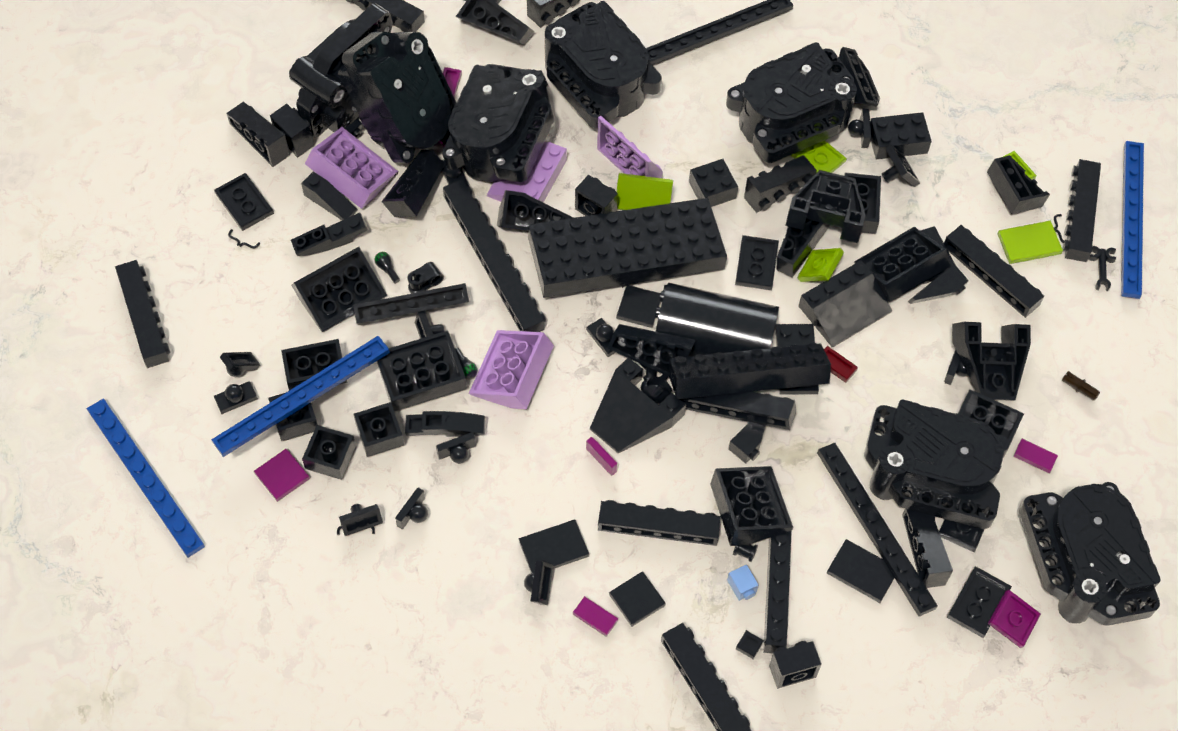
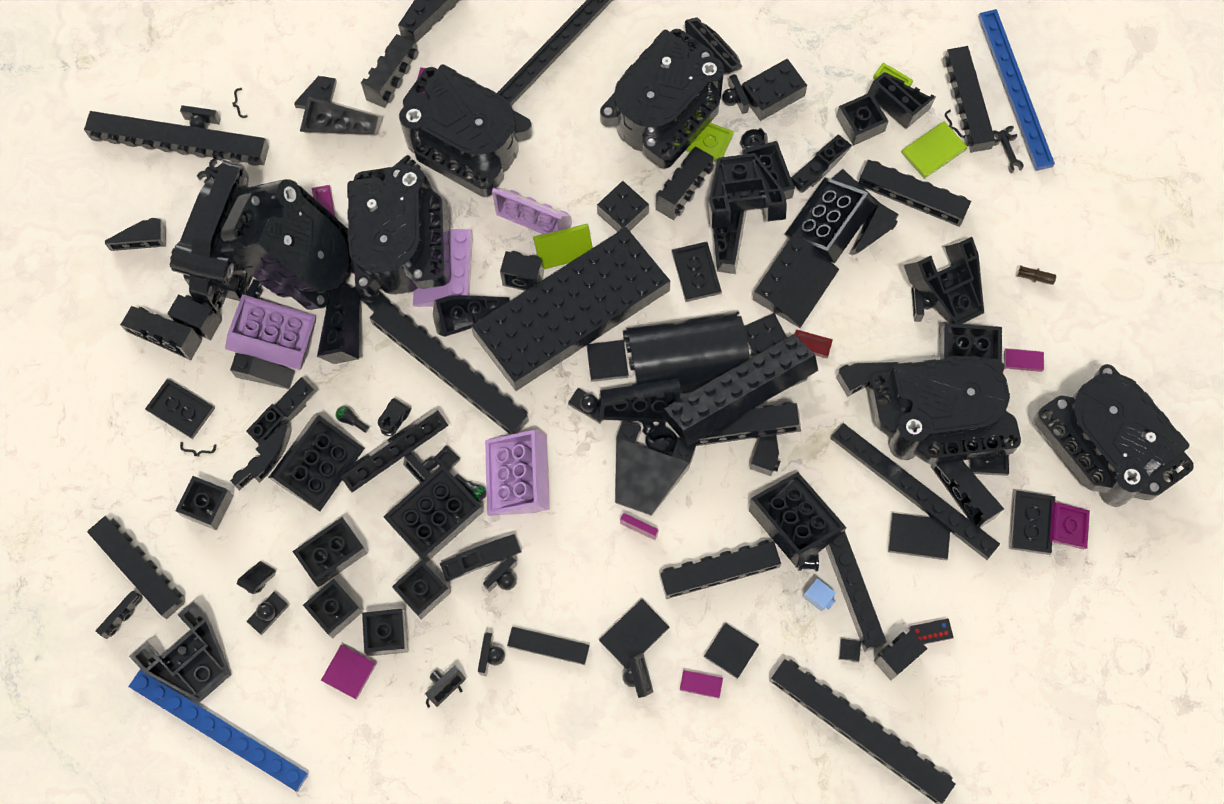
camera: 20 degrees left, 10 degrees up
(108, 346) = (119, 614): none -> black hinge
(151, 411) = (191, 663): none -> black wedge
(225, 283) = (204, 503): none -> black brick
(280, 51) = (144, 234): none -> black slope
(300, 396) = (334, 592): blue plate -> none
(302, 265) = (270, 454): none -> black slope
(456, 331) = (447, 458): none -> black tile
(470, 525) = (548, 645): none -> black tile
(820, 265) = (757, 252): lime tile -> none
(837, 660) = (933, 631): none -> black tile
(862, 167) = (753, 138): none -> black hair
(863, 406) = (859, 375): none -> black slope
(900, 167) = (789, 121): black tile -> none
(915, 215) = (821, 164): none -> black slope
(971, 189) = (862, 118): none -> black brick

